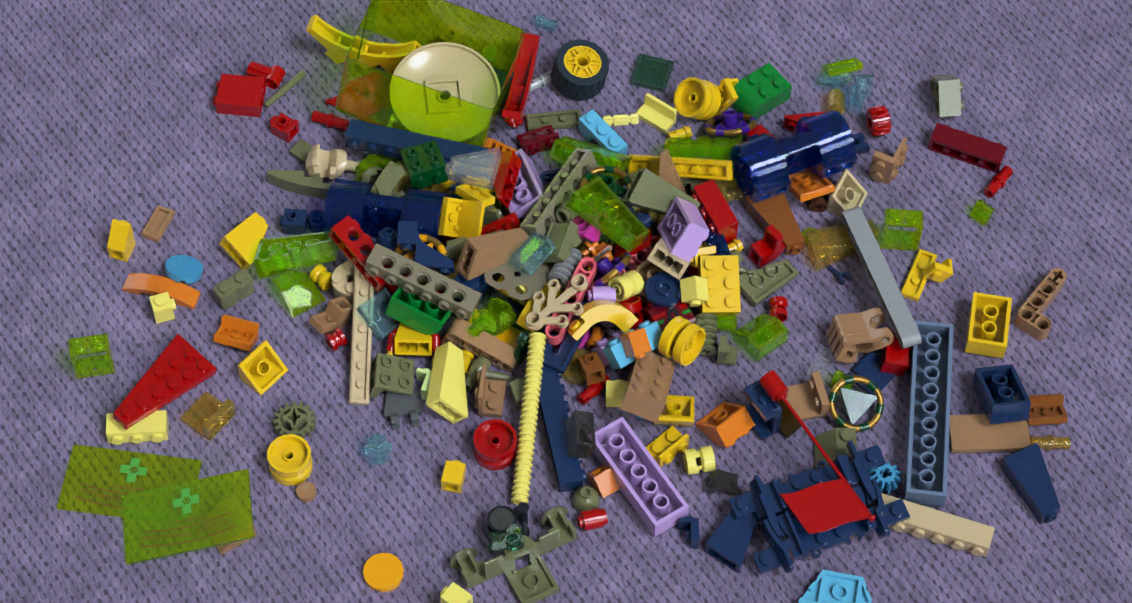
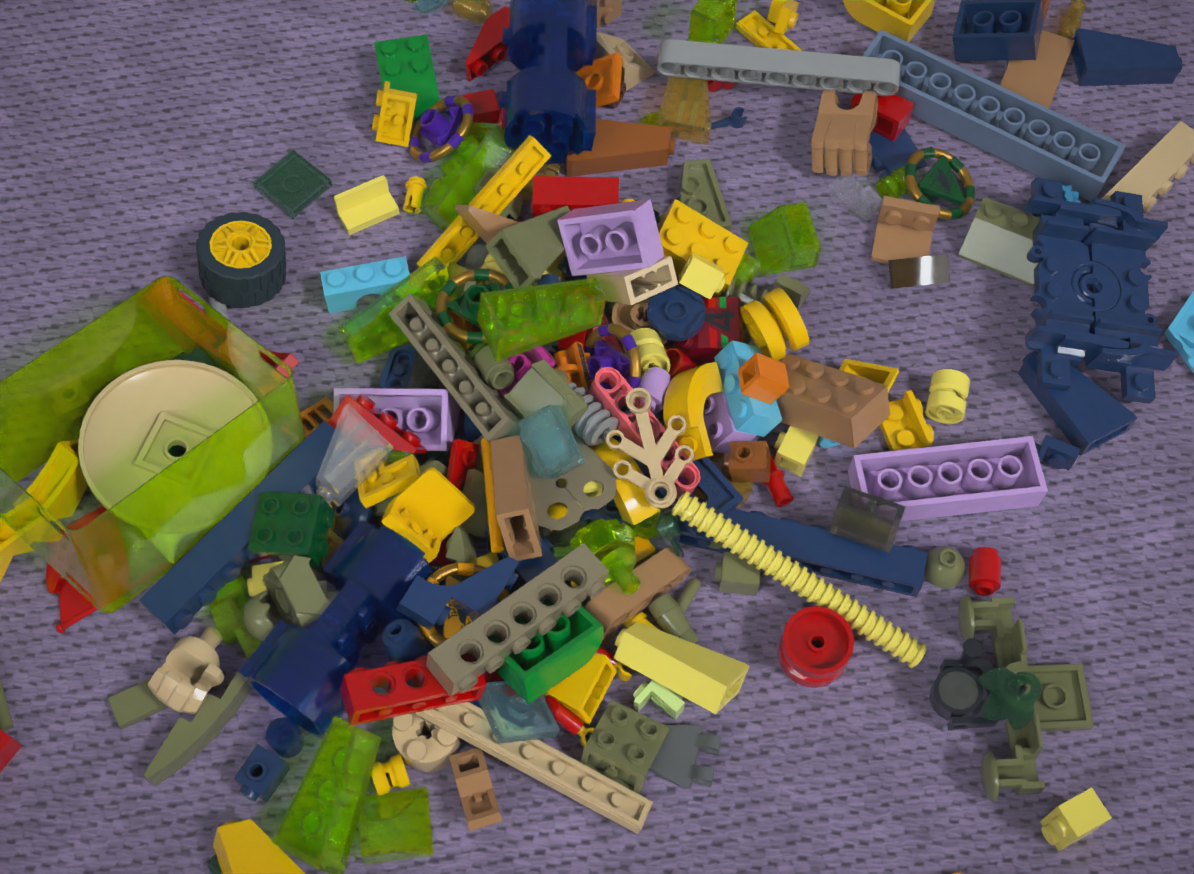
camera: 65 degrees left, 5 degrees up
(284, 127) = (80, 715): red brick -> none
(330, 120) = (101, 638): red pin -> none
(335, 339) = (515, 803): red wheel -> none
(378, 449) = (743, 833): clear light blue brick -> none
(453, 476) = (838, 729): yellow brick -> none
(489, 395) = (722, 619): medium nougat bracket -> none
(537, 140) = (319, 367): dark red bracket -> none
(546, 22) = (124, 271): clear light blue pin -> none
(558, 119) = (299, 326): olive tile -> none
(603, 481) = (927, 529): orange brick -> none
(622, 119) = (347, 249): light yellow axle -> none
(697, 98) = (368, 152): yellow wheel -> none
(722, 482) = (989, 388): clear smoke bracket -> none
(726, 424) = (901, 339): orange slope -> none
(763, 411) = (914, 284): dark blue panel -> none
(768, 248) = (655, 172): red brick -> none
(778, 307) = (751, 204): red wheel -> none
(826, 503) = (1109, 262): red flag -> none

